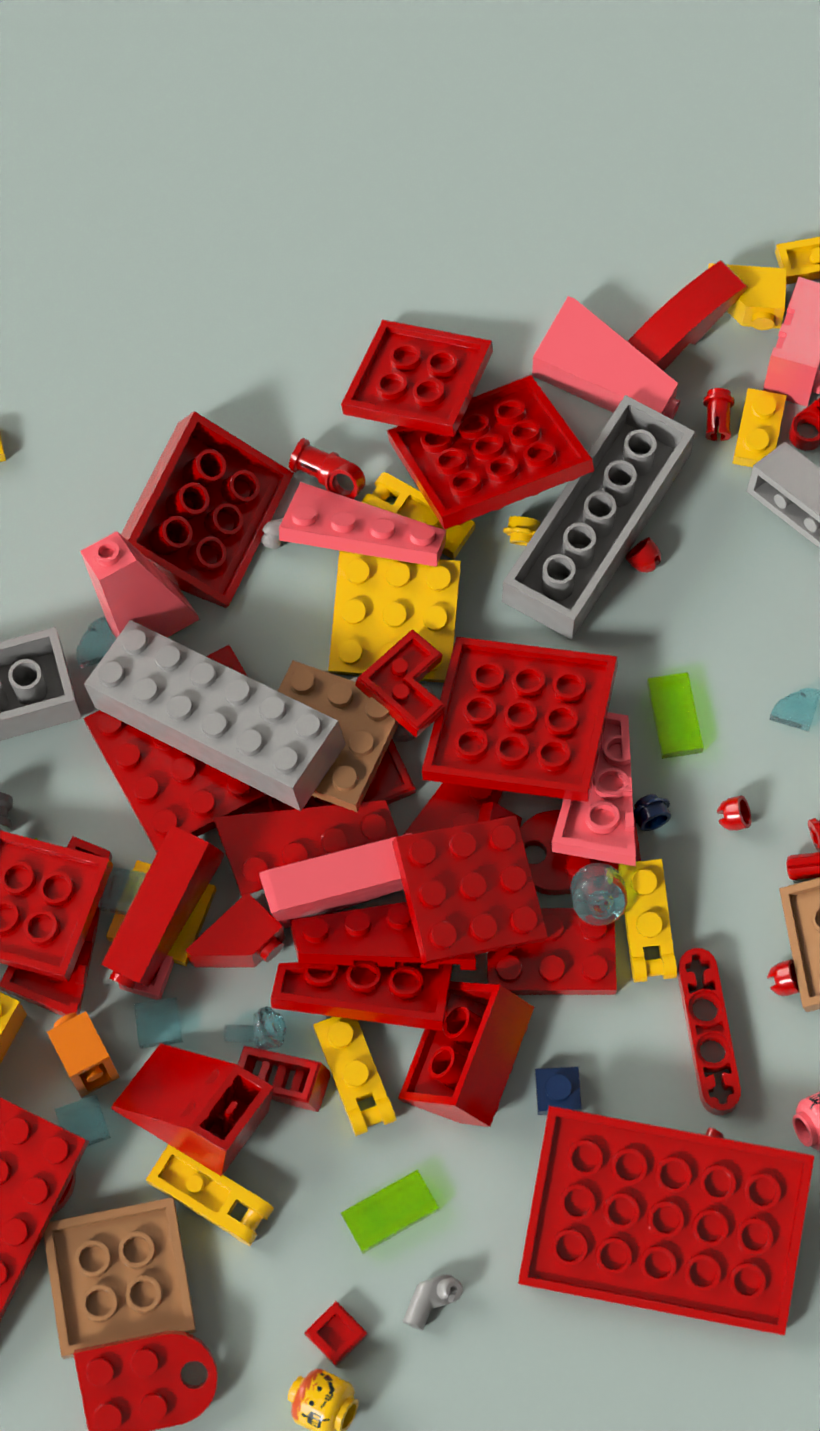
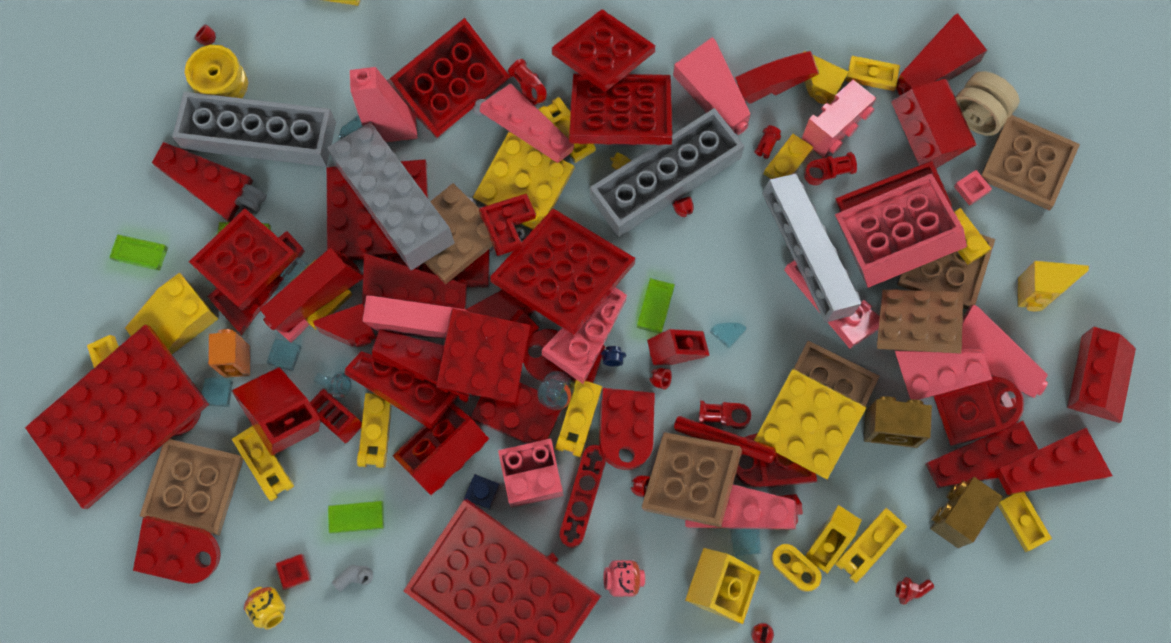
camera: 25 degrees right, 5 degrees up
(620, 1029) = (530, 473): none -> coral slope
(721, 902) = (627, 425): none -> red plate
(737, 759) = (677, 347): none -> red slope

